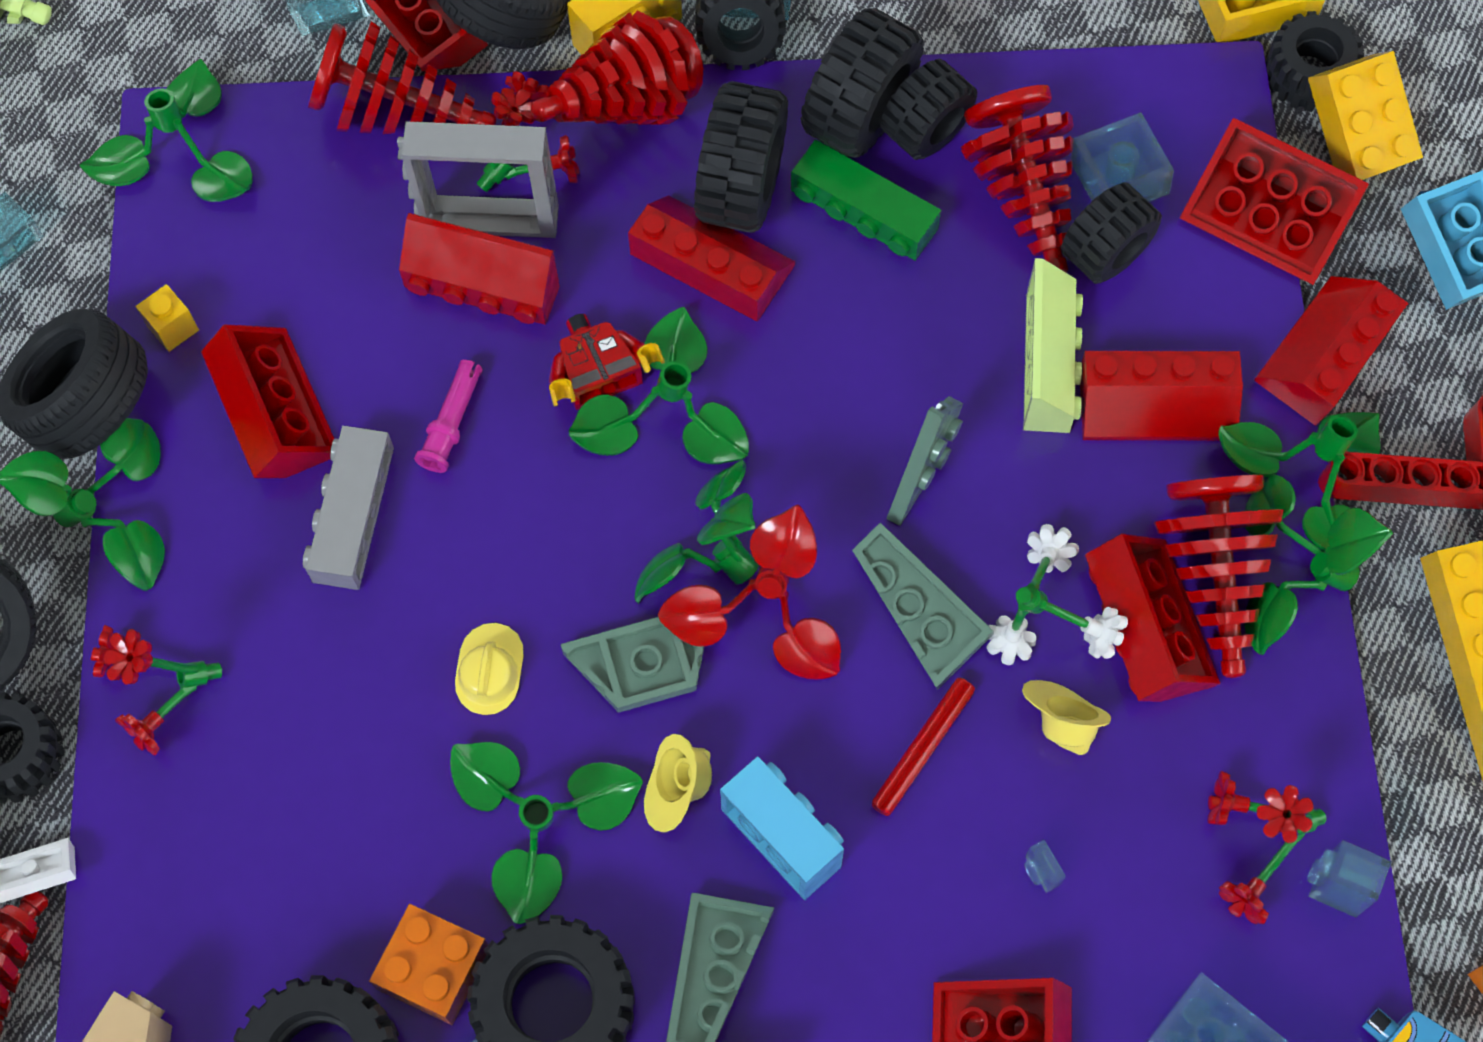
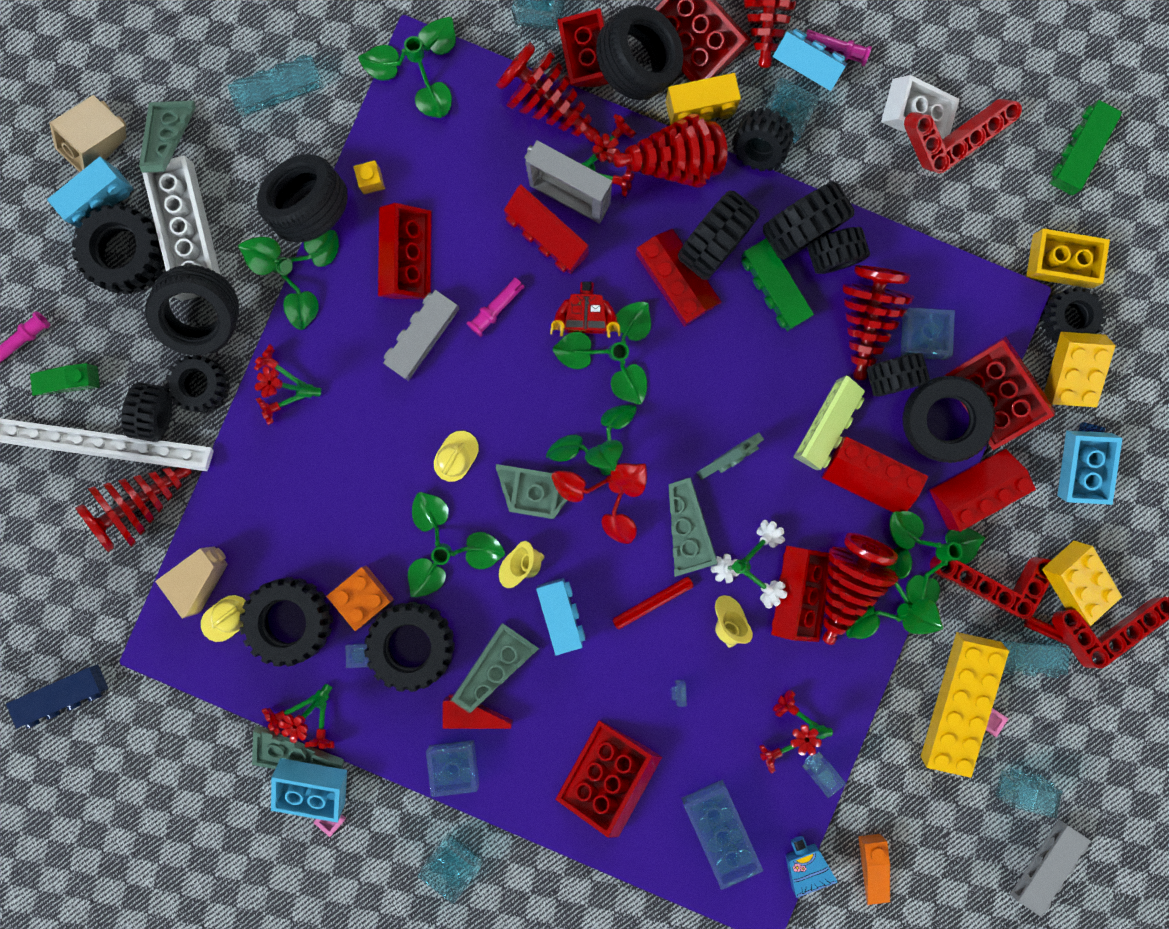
camera: 25 degrees right, 20 degrees up
(1231, 215) = (980, 419): none -> black tyre

